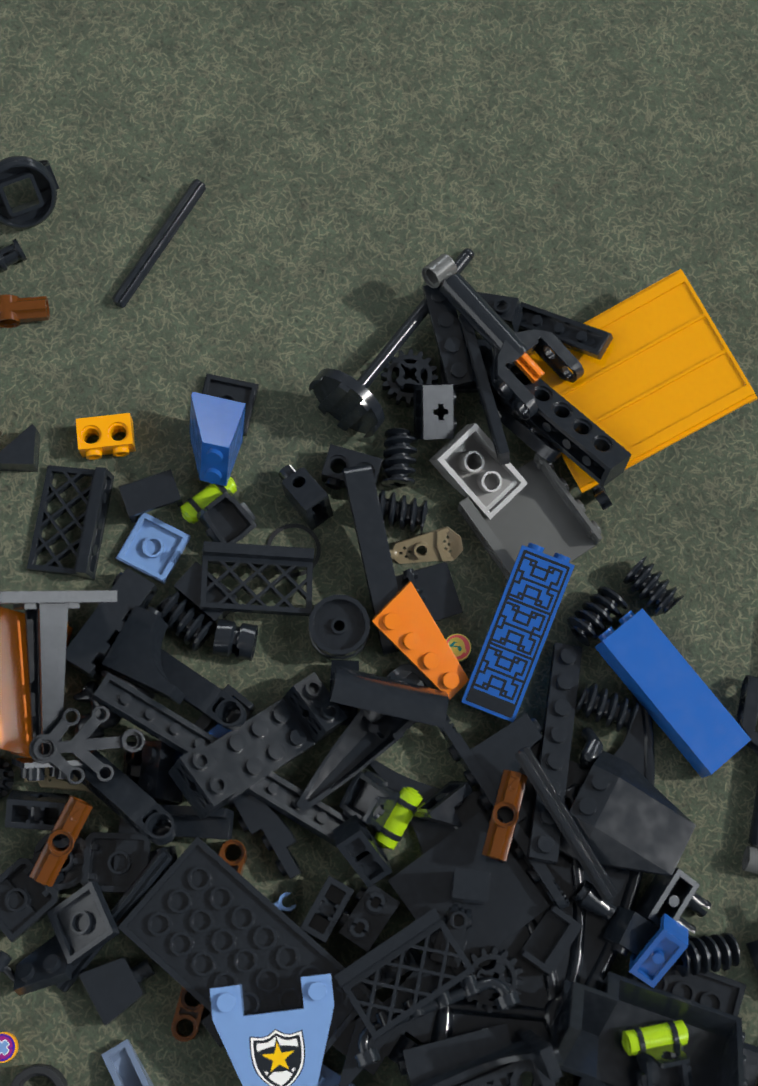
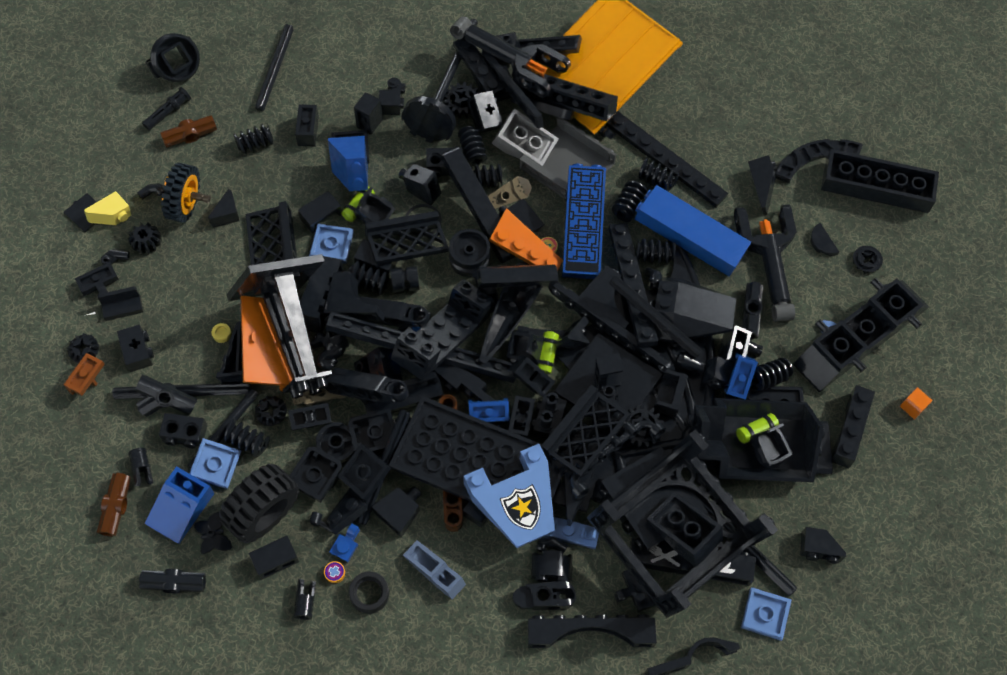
camera: 15 degrees left, 10 degrees down
(28, 1012) = (345, 546): none -> blue plate
(52, 857) = (331, 437): reddish brown piece -> none
(81, 745) = (329, 359): black plant -> none
(94, 352) = (255, 138): none -> black piece
(105, 428) = (276, 181): light orange brick -> none
(174, 353) = (307, 125): none -> black panel
(265, 363) = (368, 113): none -> black panel
(285, 883) = (490, 410): none -> blue panel
(308, 350) = (391, 99): none -> black brick
(501, 834) = (614, 313): reddish brown piece -> none
(677, 564) = (661, 154): none -> black plate
(723, 827) = (753, 301): none -> black piece

